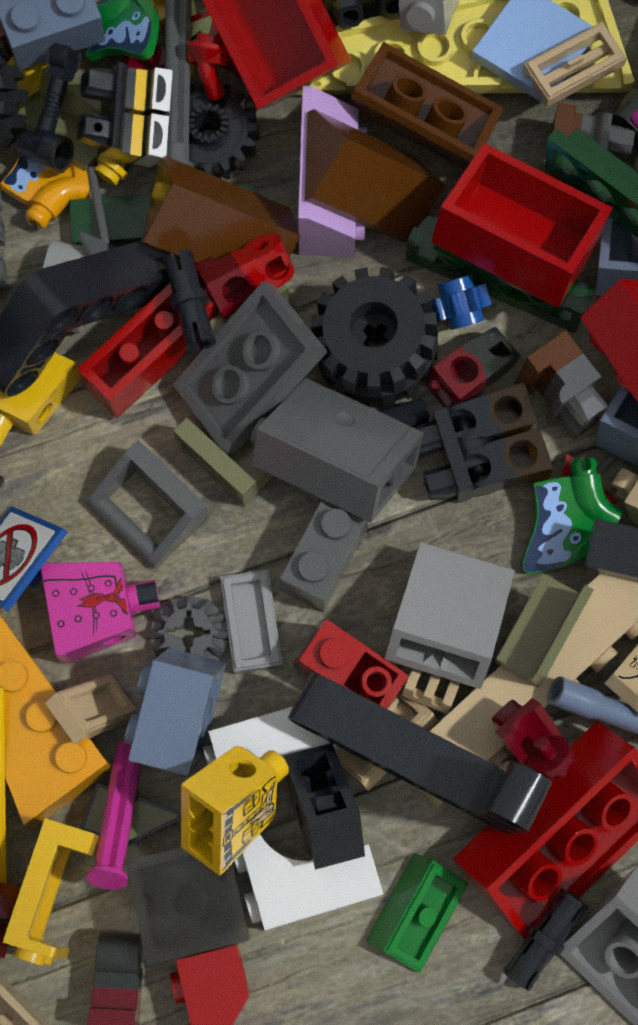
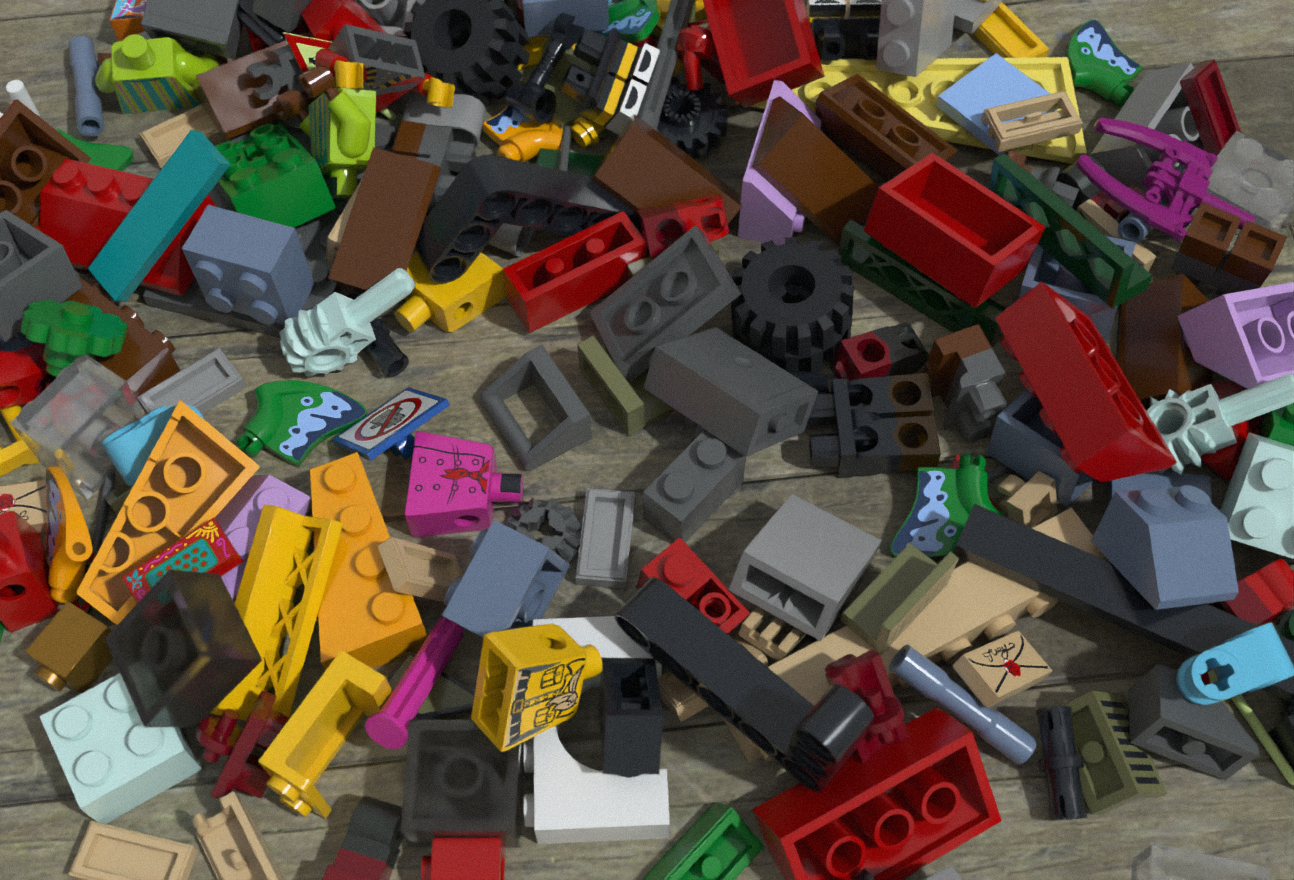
camera: 15 degrees right, 15 degrees down
(189, 300) = (622, 231): black pin -> none
(461, 302) = (881, 297): blue gear -> none

